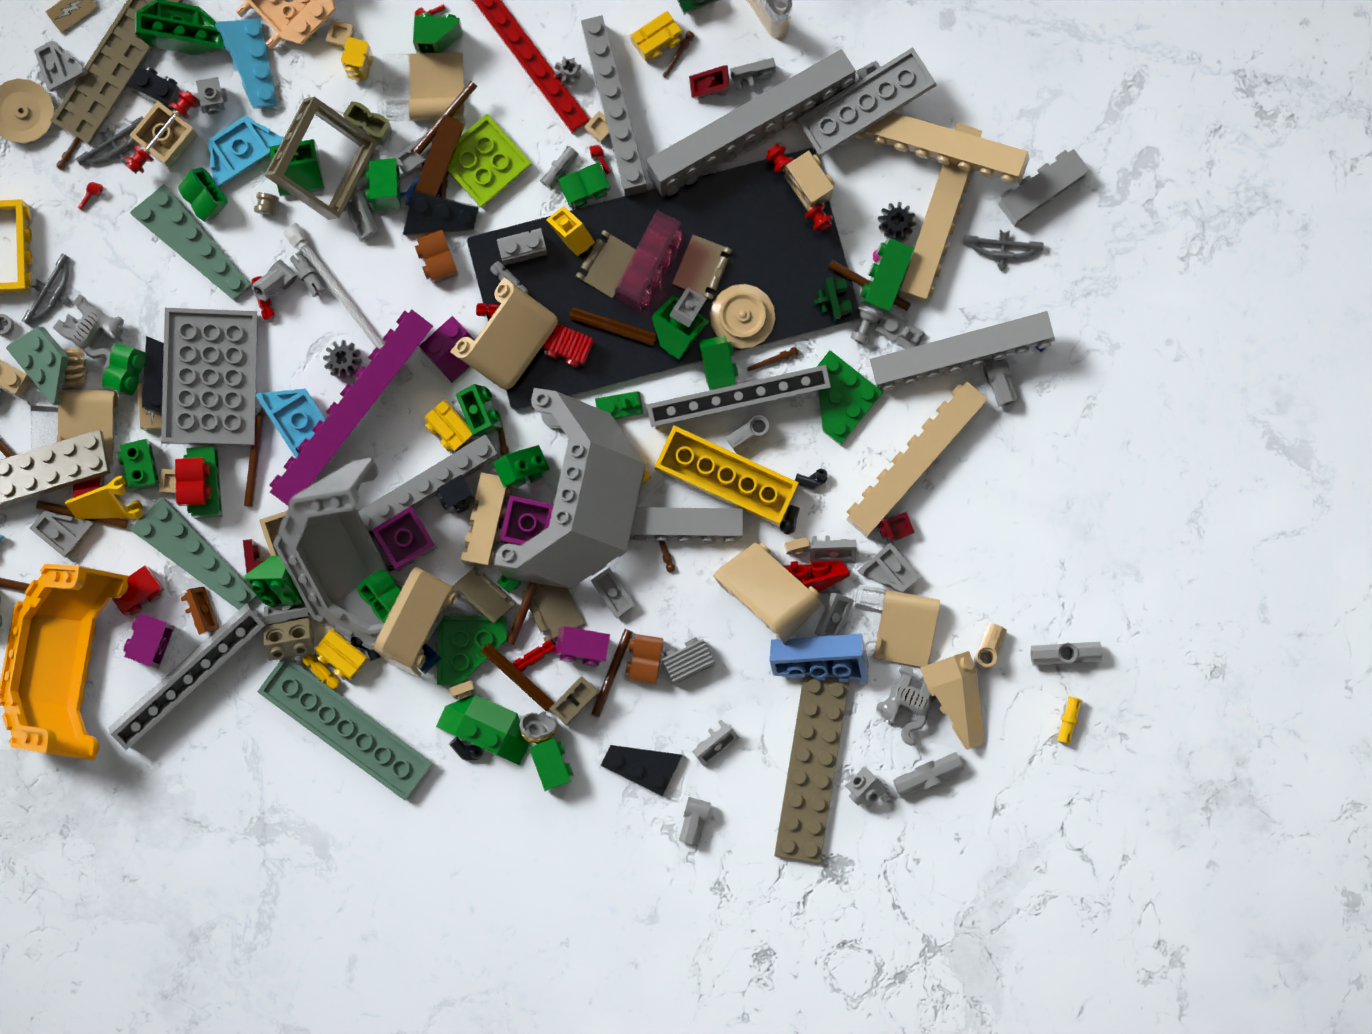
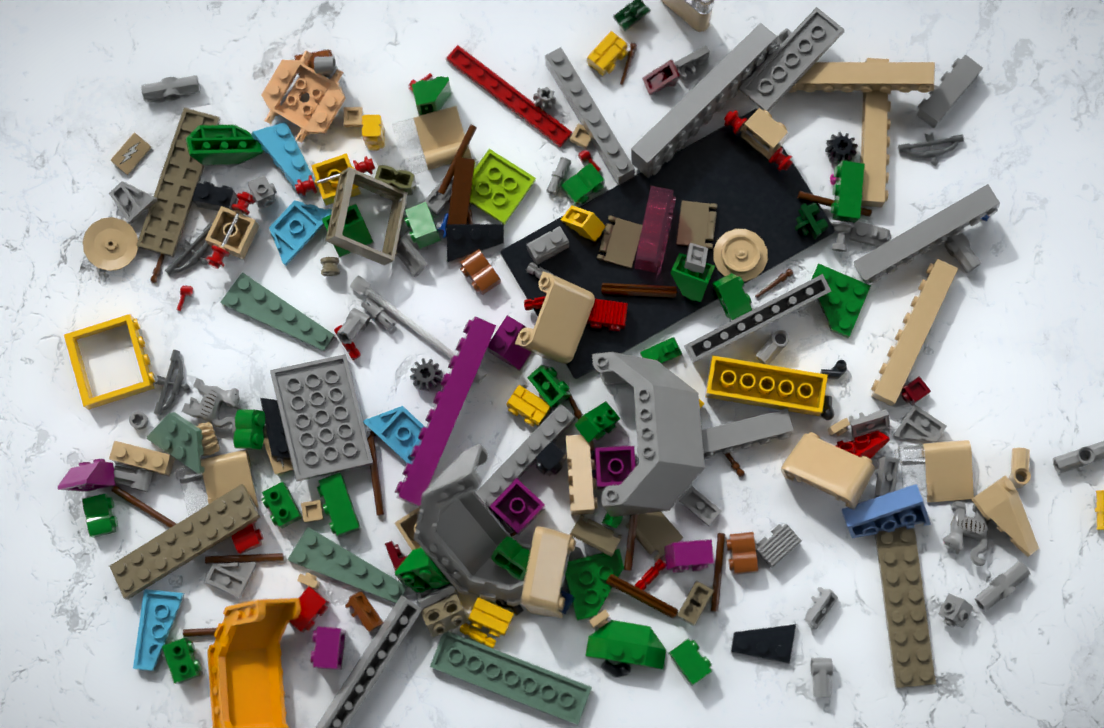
camera: 10 degrees left, 5 degrees down
(105, 503) = (262, 543): yellow flag -> none
(147, 558) = (309, 580): none -> tan plate
(191, 481) = (330, 506): red brick -> none
(202, 194) = (276, 271): green brick -> none
(289, 96) = (328, 174): none -> yellow brick
(537, 727) = (671, 633): light grey hair -> none

